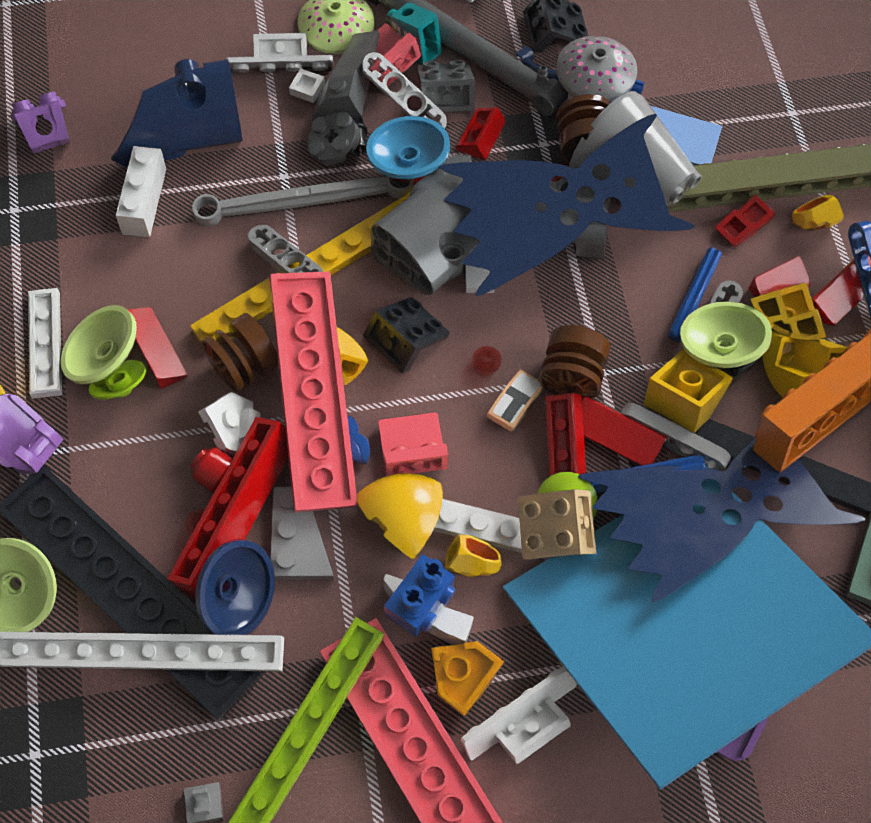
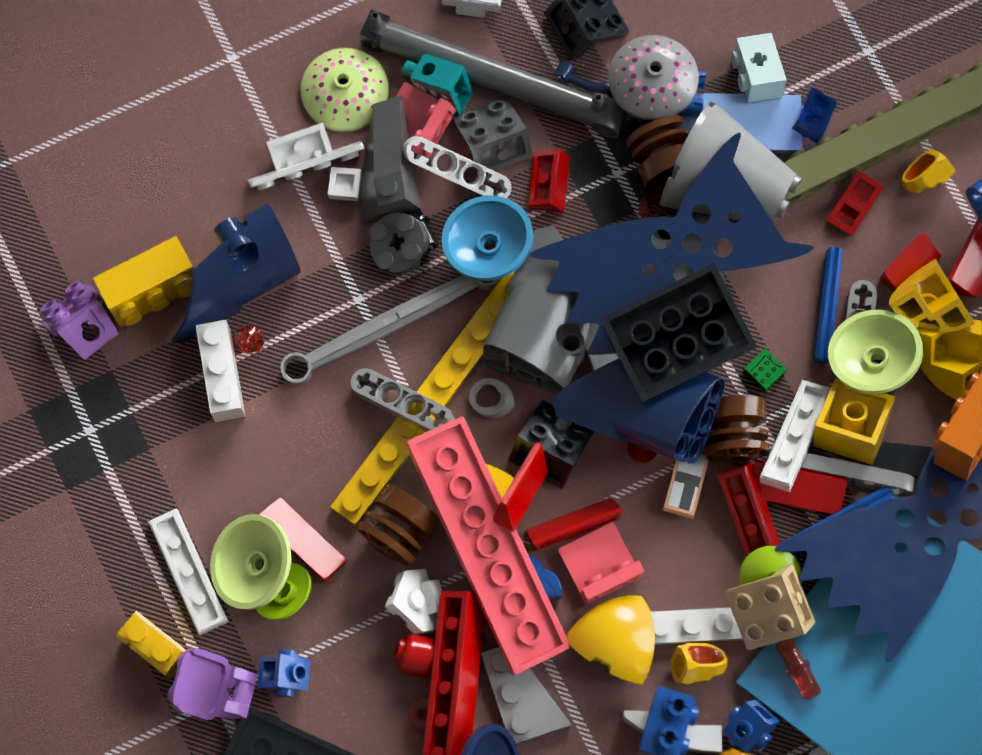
camera: 15 degrees left, 10 degrees up
(88, 446) = (284, 673): none -> blue brick
(102, 103) = (146, 282): none -> yellow brick
(177, 175) = (249, 338): none -> clear red plate
(360, 349) = (522, 489): none -> red slope
(373, 292) = (503, 407): none -> light grey piece
(400, 406) = (574, 524): none -> red slope
(501, 628) = (750, 726): none -> blue brick
(503, 313) = (669, 424): none -> dark blue panel
(546, 253) = (677, 333): none -> black slope
(565, 587) = (798, 668): none -> clear red axle
(620, 330) = (765, 370): none -> green tile
(625, 389) = (794, 436): none -> white tile
(691, 93) = (758, 68): none -> light aqua brick
(729, 141) = (814, 115): none -> clear blue plate

